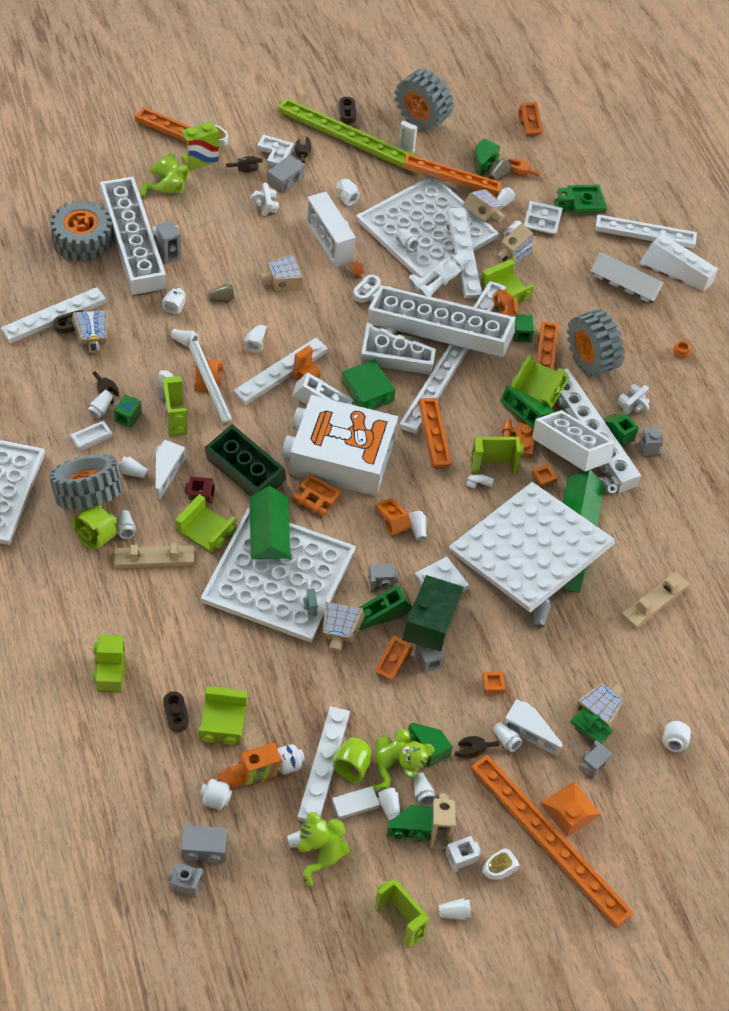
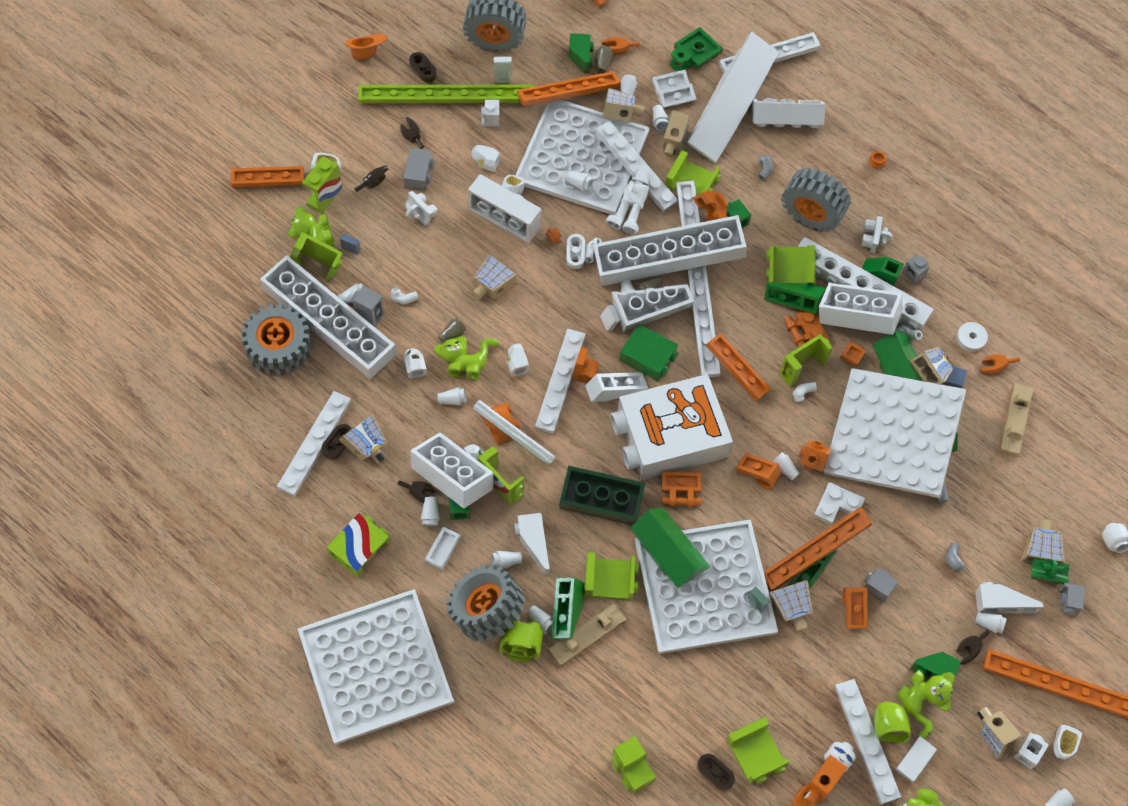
camera: 30 degrees left, 10 degrees up
(27, 394) = (357, 543): none -> panel
(137, 379) = (451, 470): none -> white brick
(150, 175) = (318, 251): none -> lime panel
(154, 521) = (567, 607): none -> green slope
(191, 197) = (350, 244): none -> sand blue tile
(200, 483) = (584, 538): dark red brick -> none
(202, 253) = (402, 298): none -> white arm
(211, 315) = (455, 352): none -> lime animal
(276, 148) = (389, 144): white plate -> none
(310, 76) = (365, 46): none -> orange piece
(353, 217) = (514, 184): none -> white rock
(356, 347) = (610, 318): none -> white tile
(375, 163) = (490, 114): none -> white brick
(382, 576) = (791, 535): light grey brick -> none
(390, 803) = (944, 742): white cone -> none
(391, 587) = (817, 548): none -> orange plate
(412, 823) = (974, 748): green slope -> none
(423, 790) = (961, 713): white cone -> none
(433, 613) = (867, 553): dark green brick -> none
(448, 528) = (814, 455): none -> orange brick
(493, 682) = (947, 578): orange plate -> none
(511, 671) = (953, 559): none -> light grey arm
(547, 344) = (768, 221): orange plate -> none
(570, 809) = (1080, 654): orange slope -> none
(579, 308) = (767, 167): none -> light grey arm
(585, 243) = (732, 97): none -> white slope
(606, 514) = (932, 366): none -> tan torso
(624, 539) = (956, 377): none -> sand blue tile
(664, 511) = (977, 331): none -> white piece
(673, 549) = (999, 361): none -> orange hand
(679, 263) = (820, 72): white wedge -> none

